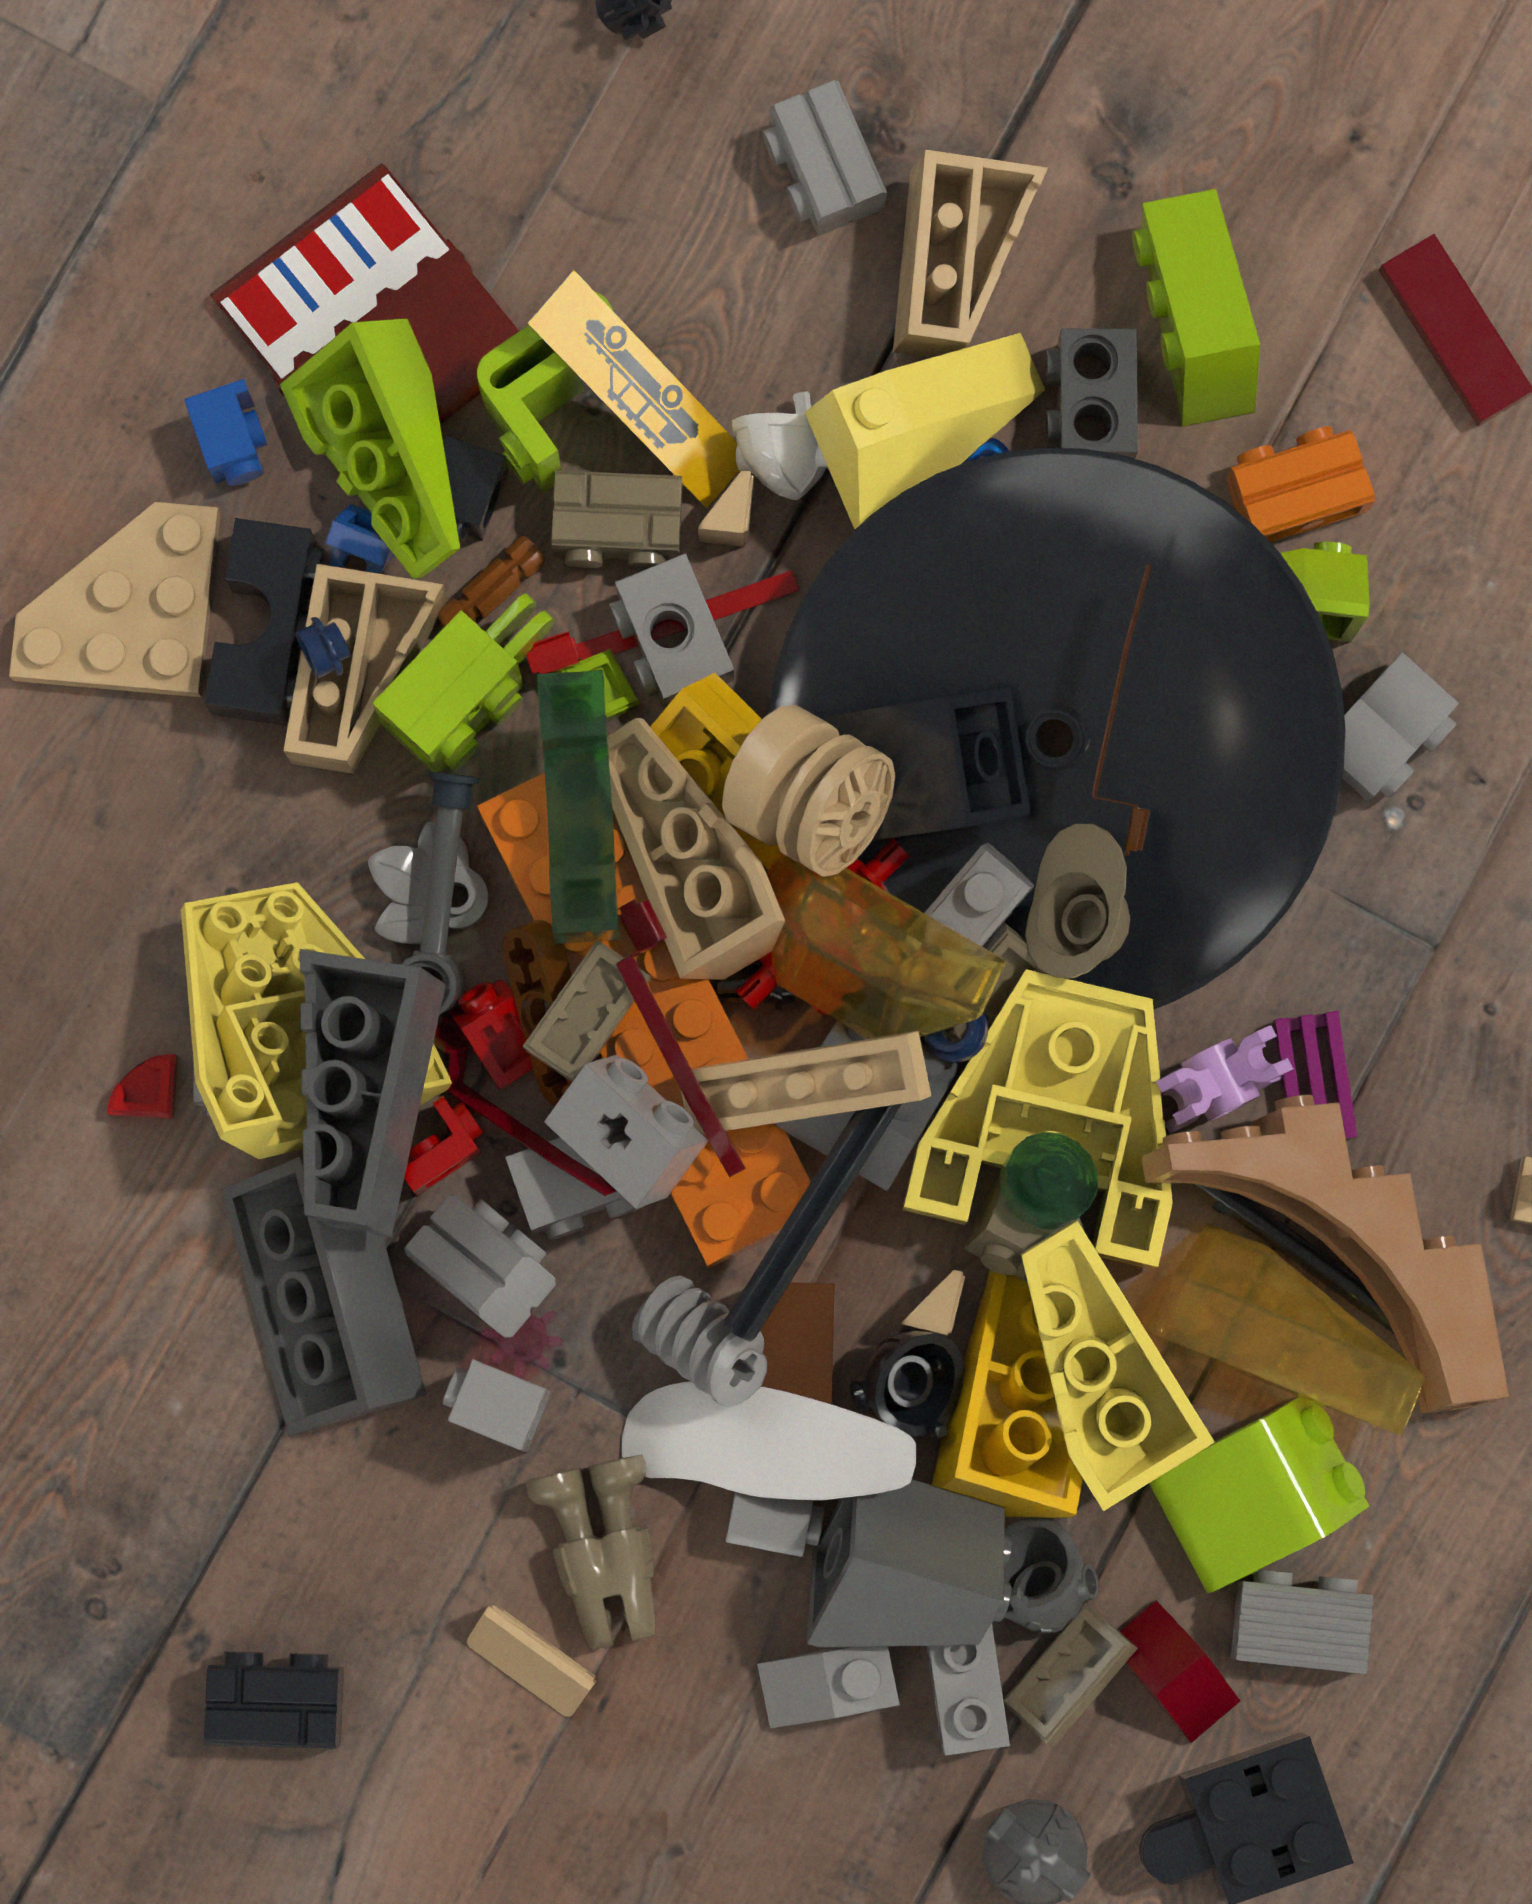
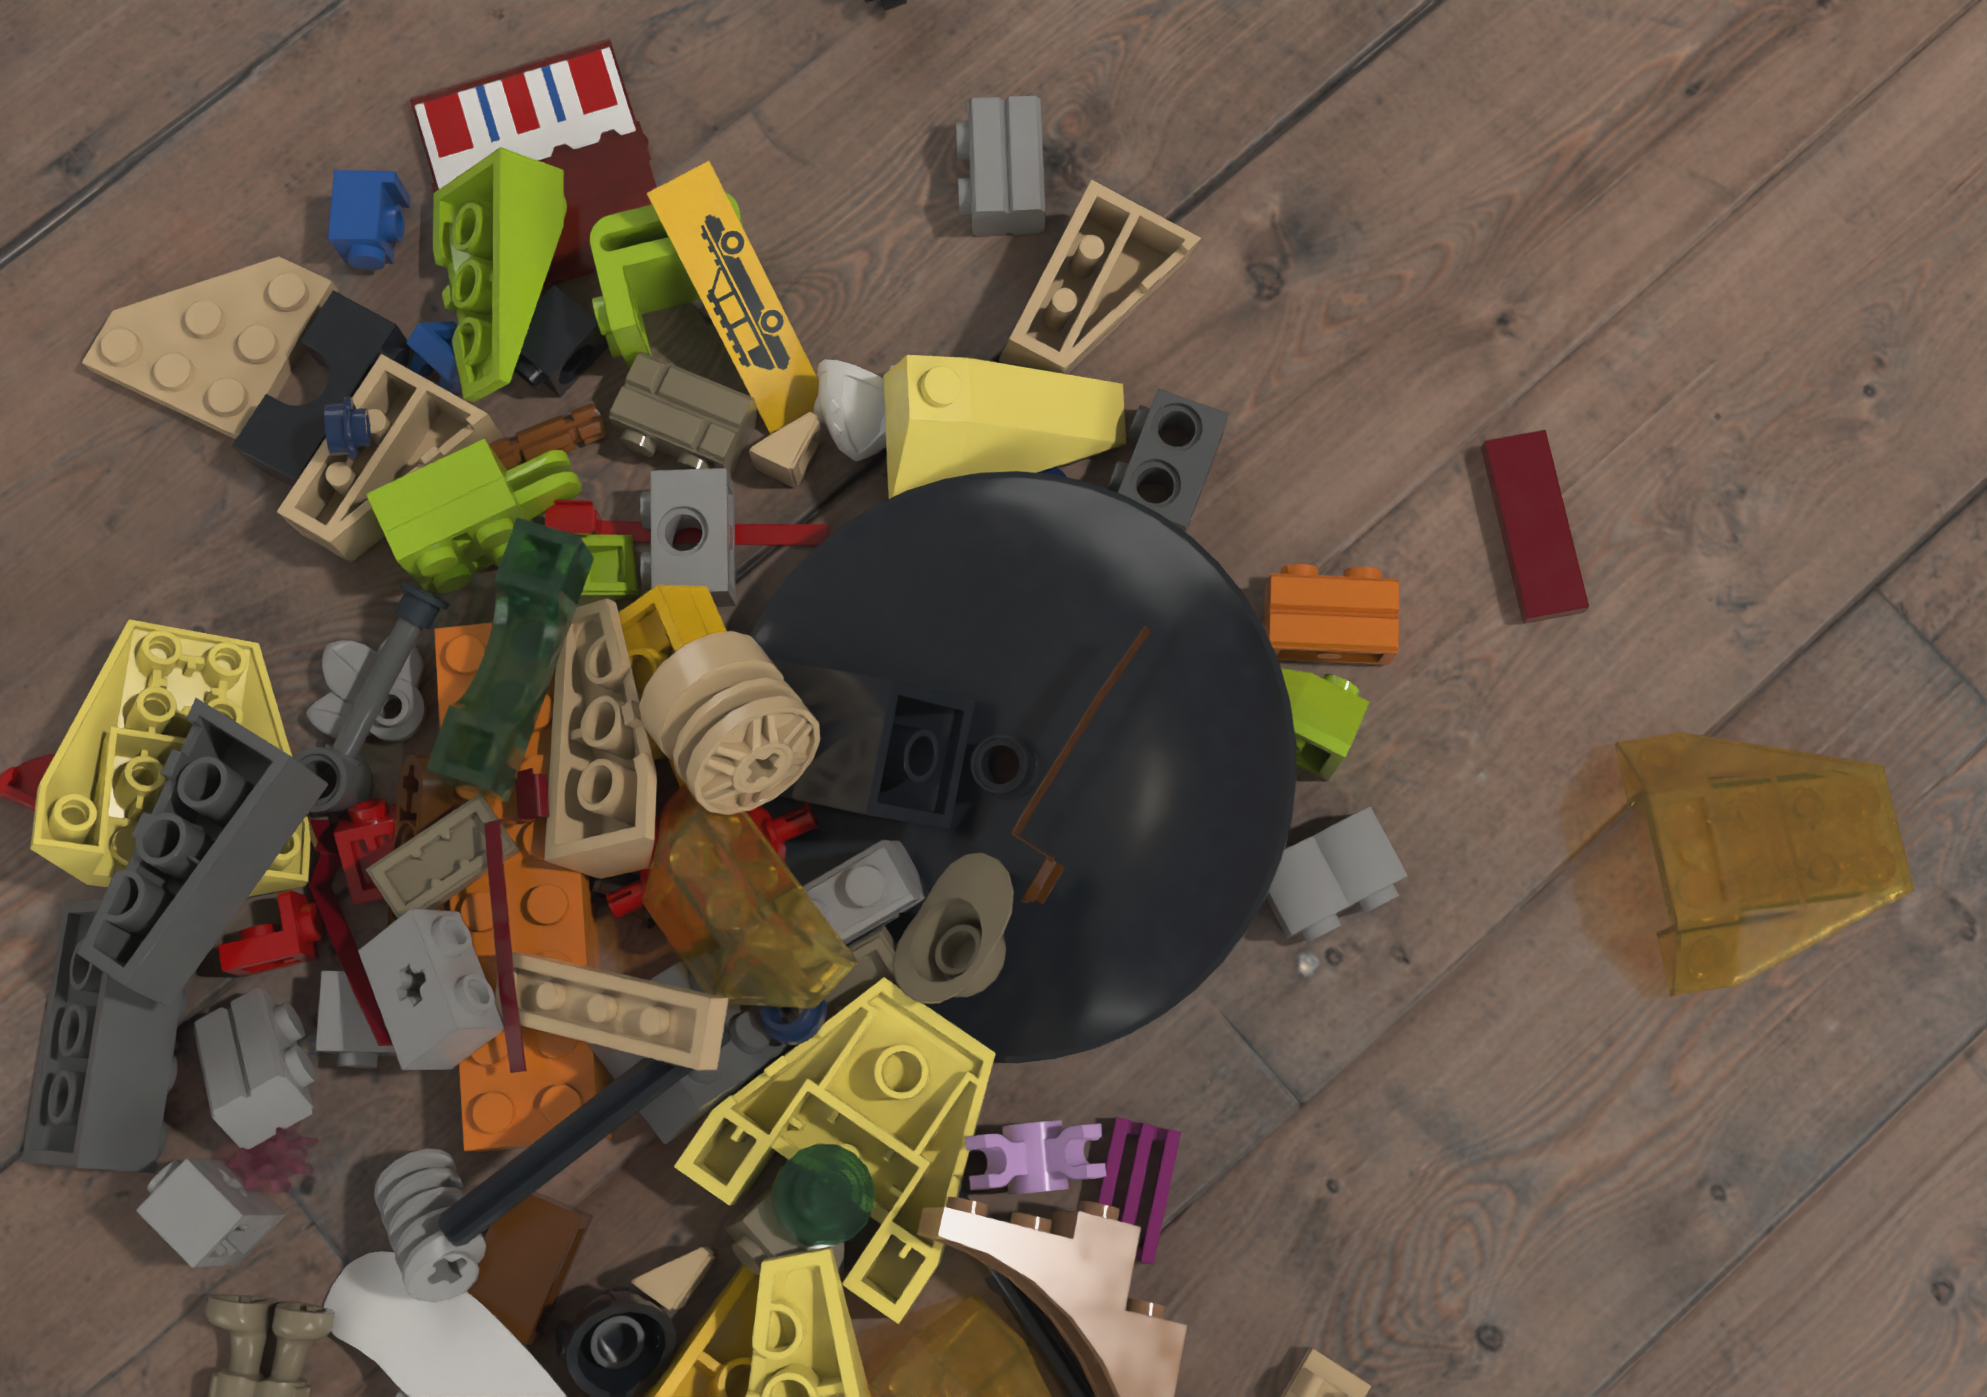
camera: 25 degrees right, 5 degrees down
(1200, 306) = (1298, 417): lime wedge -> none

